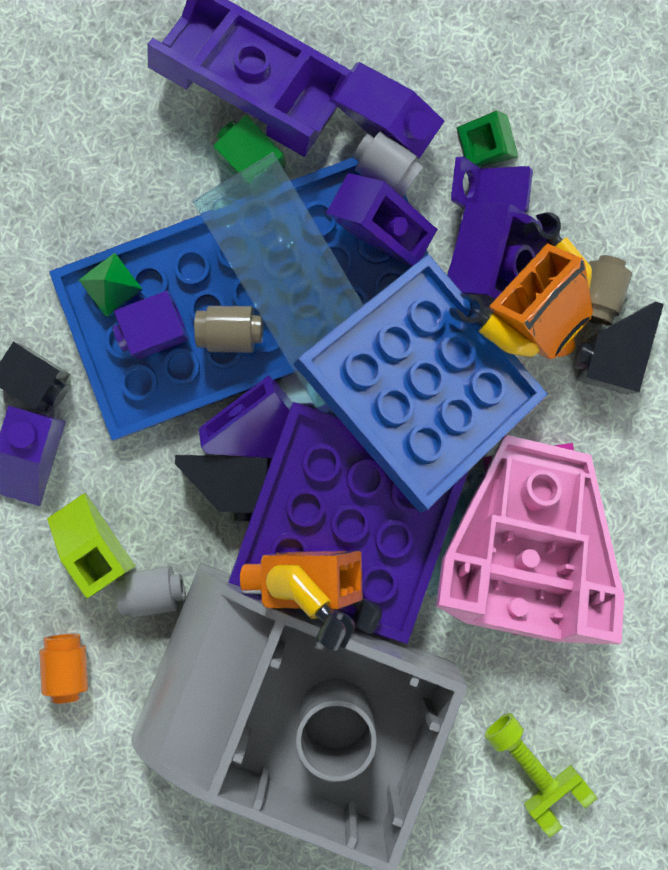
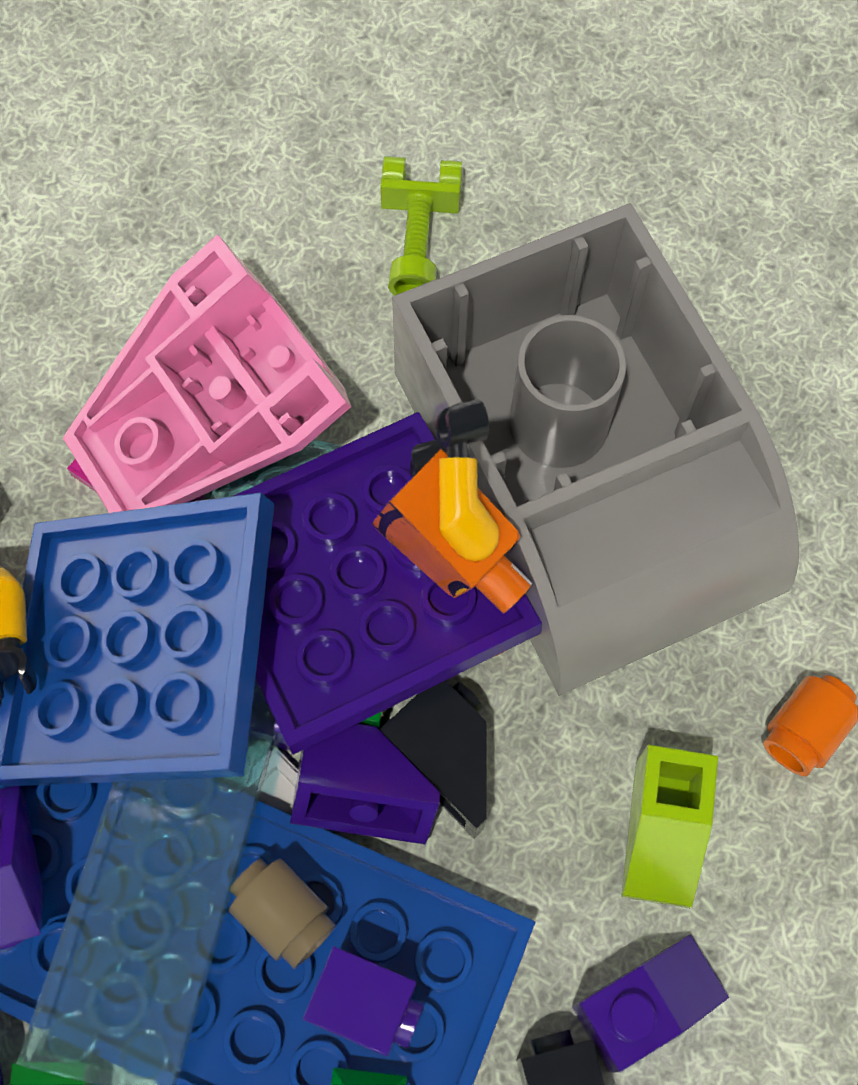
camera: 140 degrees left, 20 degrees down
(149, 592) = (642, 713): light grey brick -> none

